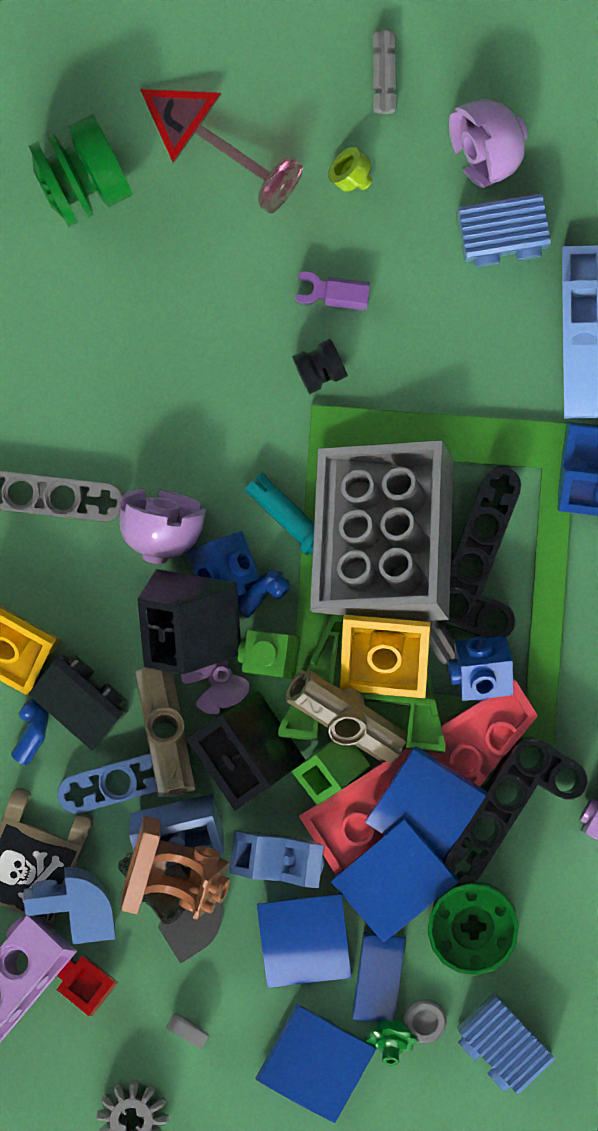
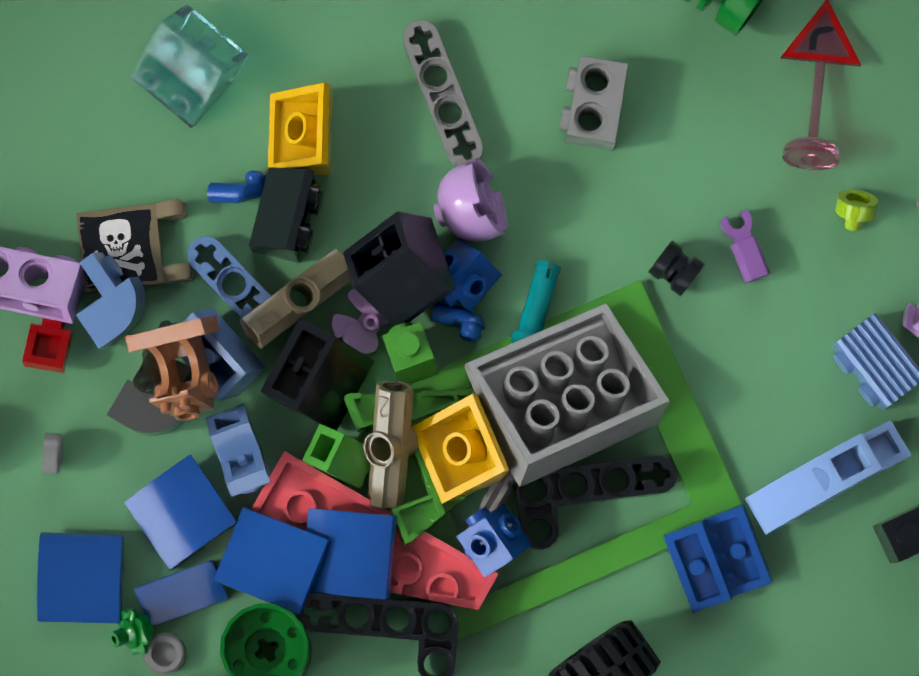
camera: 60 degrees right, 5 degrees down
(132, 350) = (602, 104): none -> light grey brick

